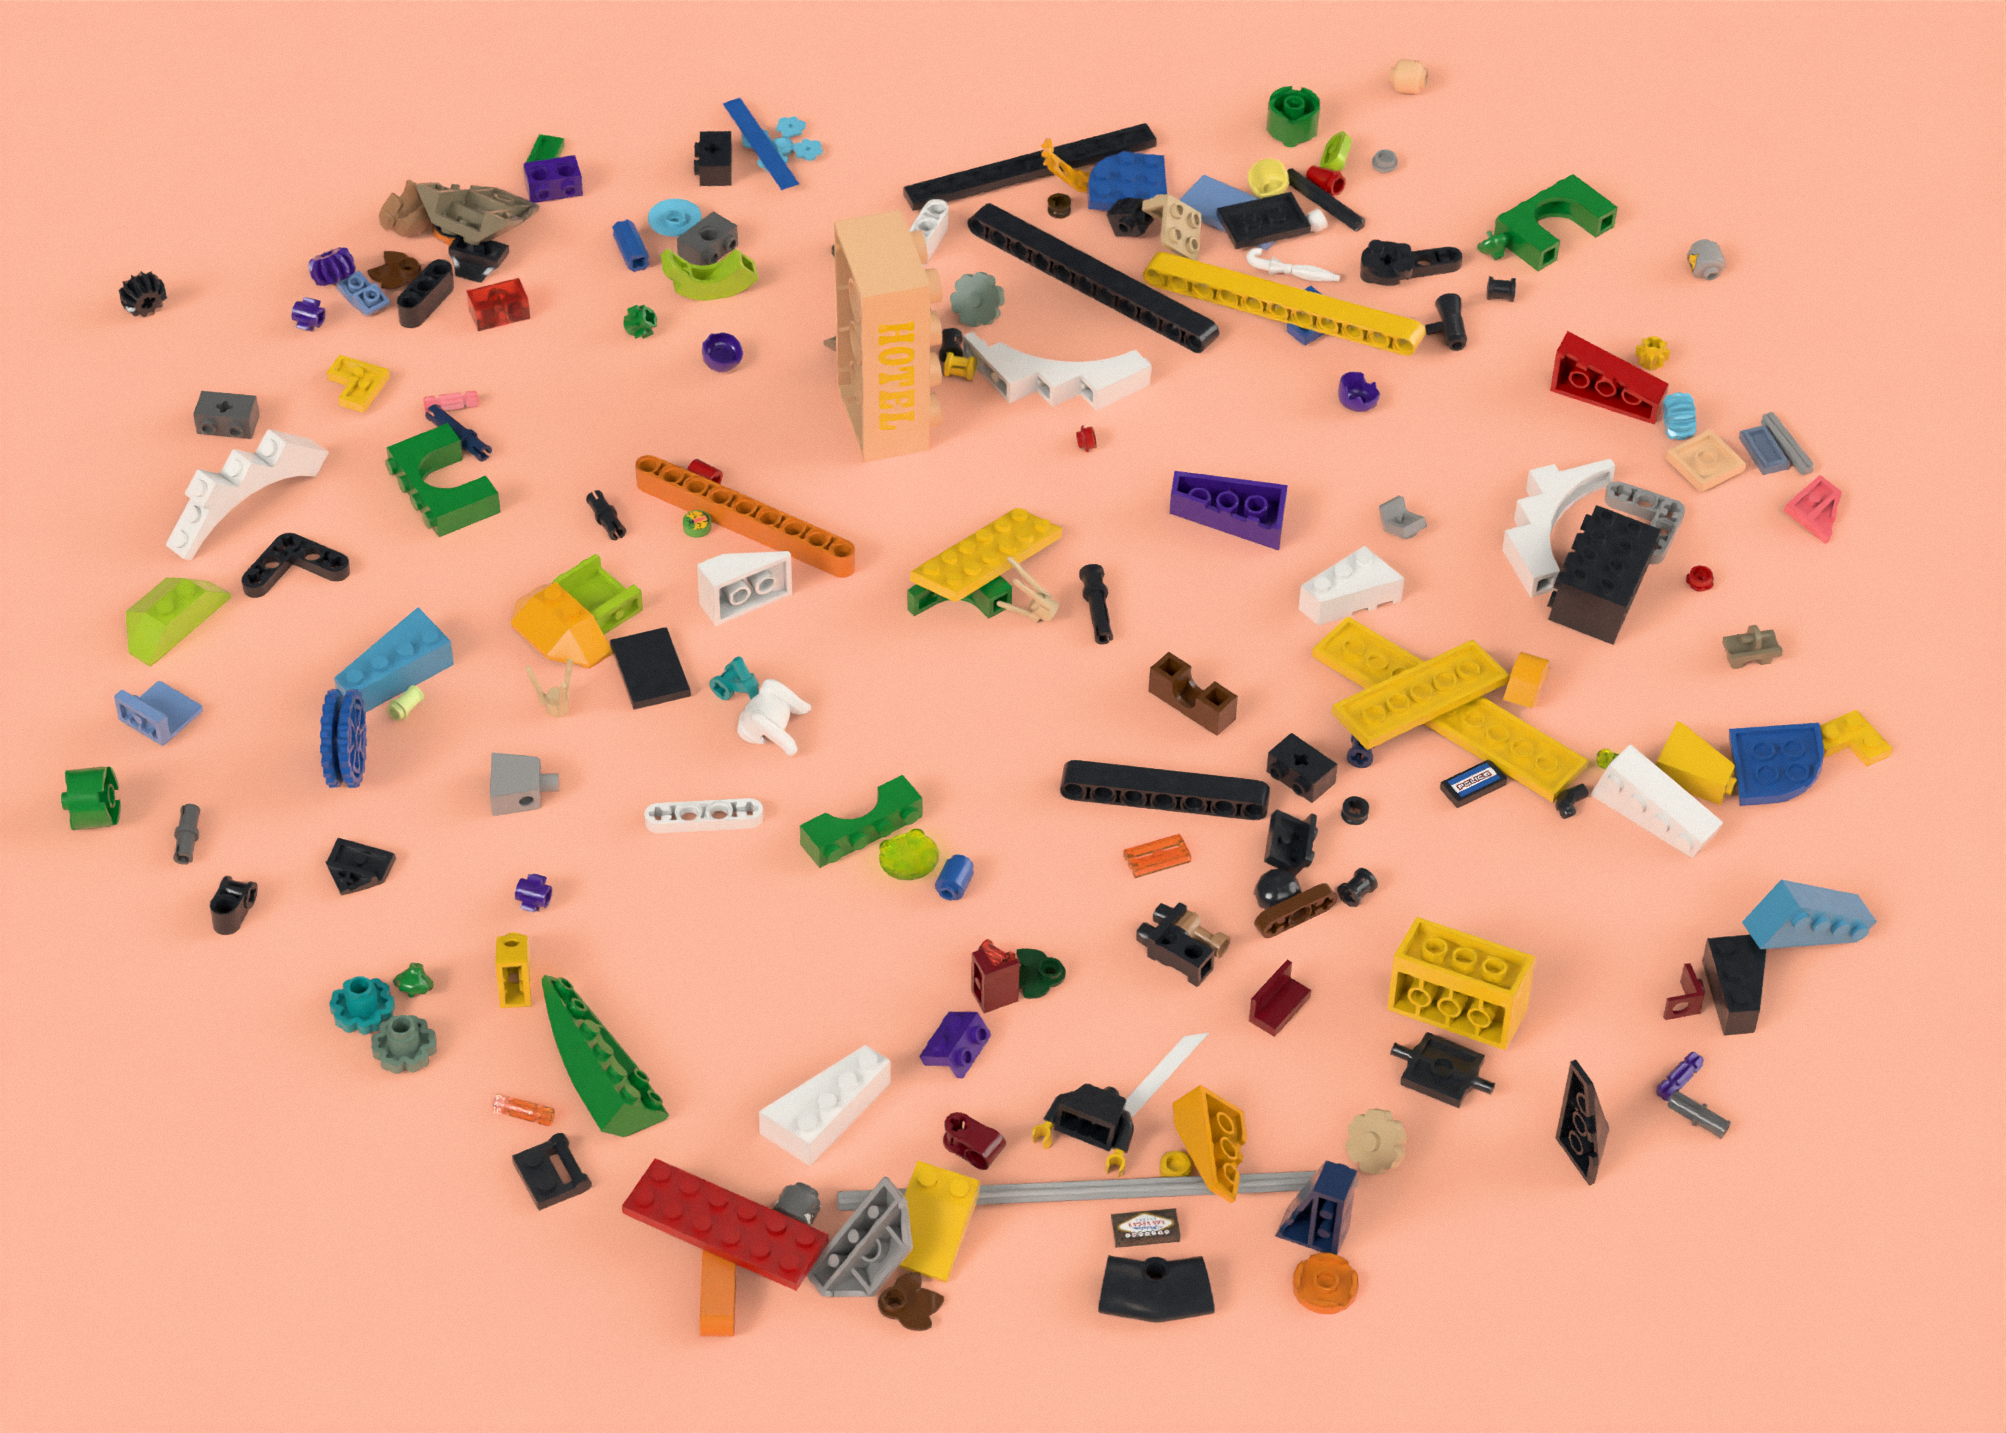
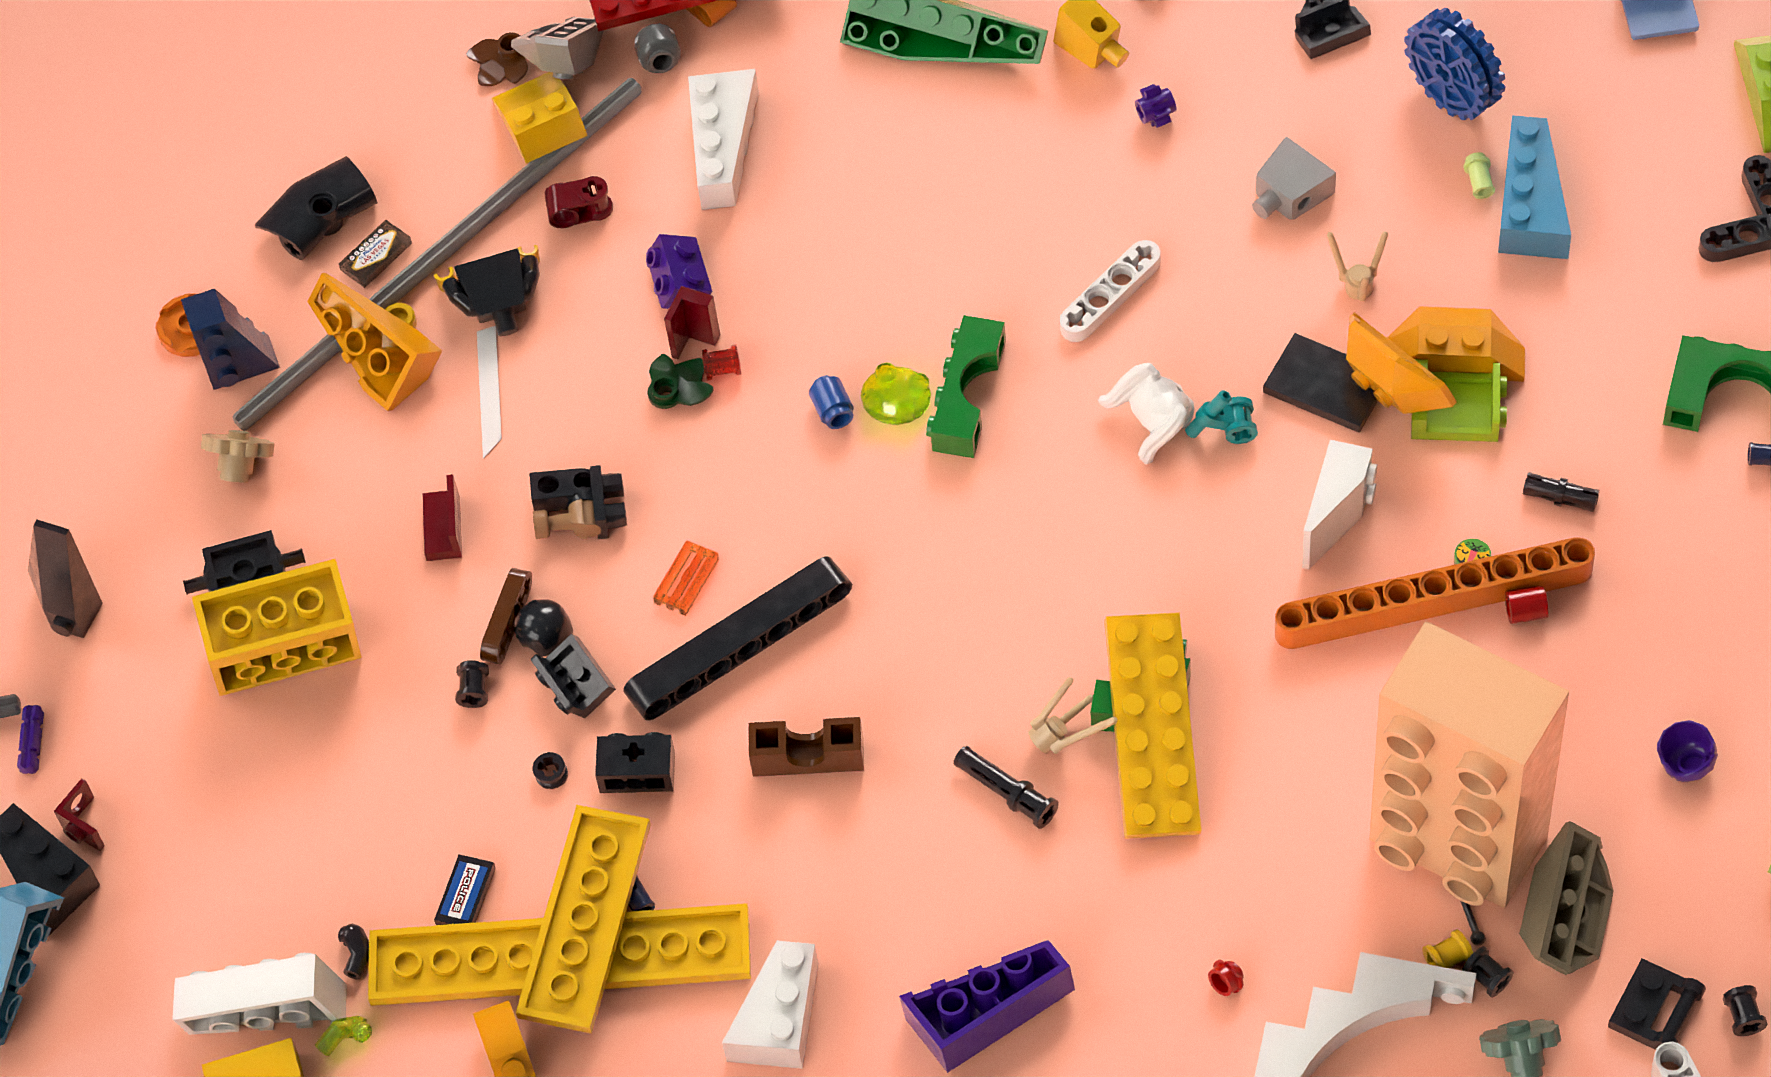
camera: 145 degrees right, 10 degrees up
(621, 614) = (1392, 372): none -> light orange wedge

